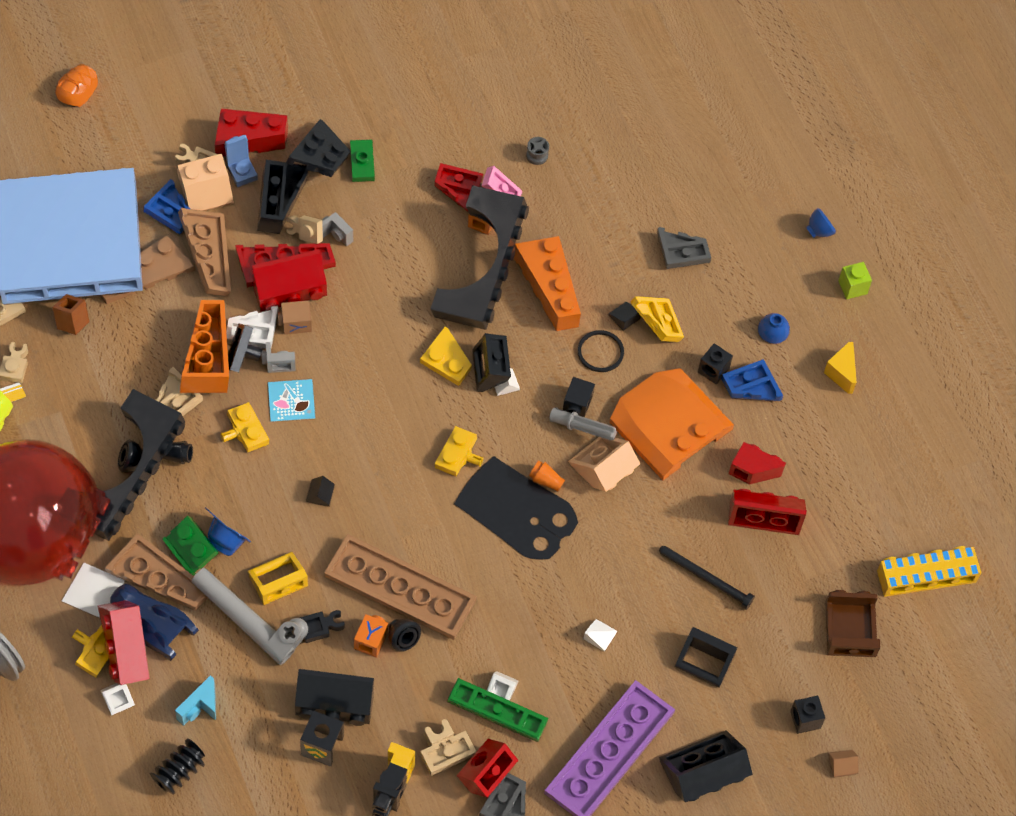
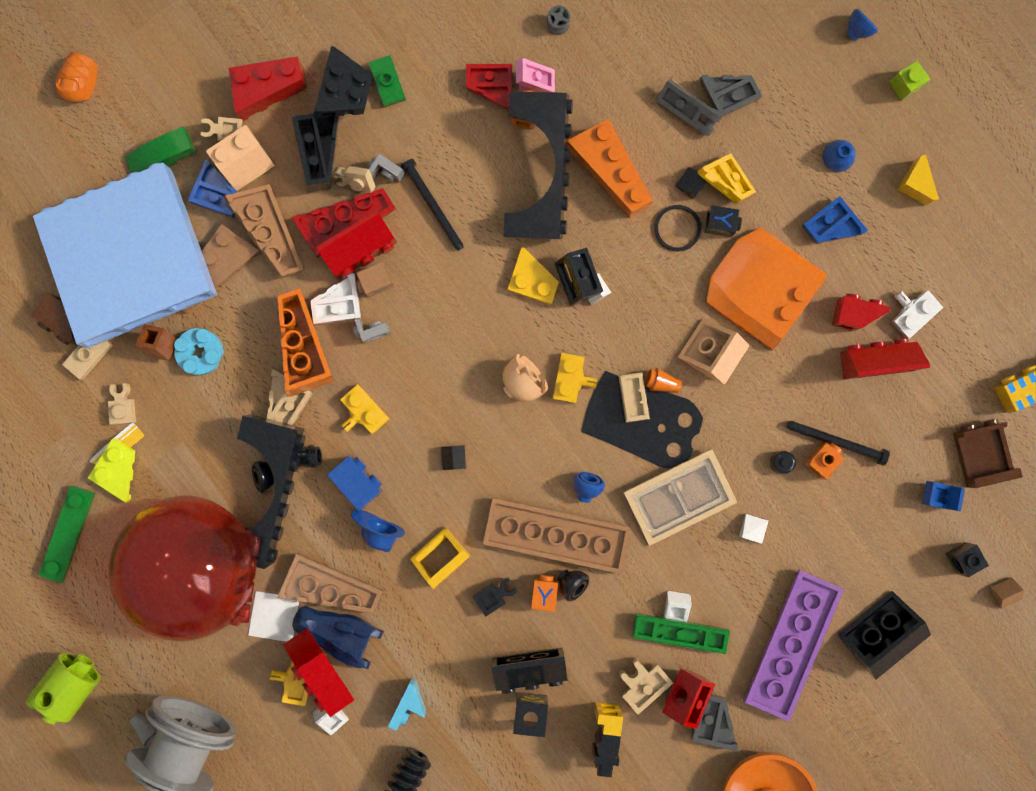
camera: 10 degrees left, 25 degrees up
(102, 325) = (186, 346): none -> medium azure plate
(143, 159) = (163, 149): none -> green slope
(190, 545) = (349, 551): green plate -> none
(217, 486) = (356, 482): none -> blue brick
(238, 161) = (267, 121): medium blue bracket -> none
(241, 348) = (333, 332): tile -> none
(276, 644) = (460, 628): light grey axle -> none
(291, 400) = (397, 366): medium azure sticker -> none
(359, 233) = (409, 167): none -> black bar
(409, 437) = (522, 380): none -> light nougat cylinder
(444, 550) = (588, 486): none -> blue brick
(514, 482) = (633, 397): none -> tan plate
(534, 585) = (680, 497): none -> clear door
(574, 421) = (683, 318): light grey axle -> none
(578, 396) = (671, 289): black brick -> none
(638, 250) = (688, 107): none -> dark grey plate
(644, 353) = (722, 221): none -> black brick
(646, 581) = (782, 462): none -> black piece
(685, 594) = (817, 463): none -> orange brick
(711, 646) = (881, 522): black tile -> none
(715, 363) = (794, 214): black brick -> none
(797, 650) = (943, 496): none -> blue bracket
(813, 481) = (915, 312): none -> white plate

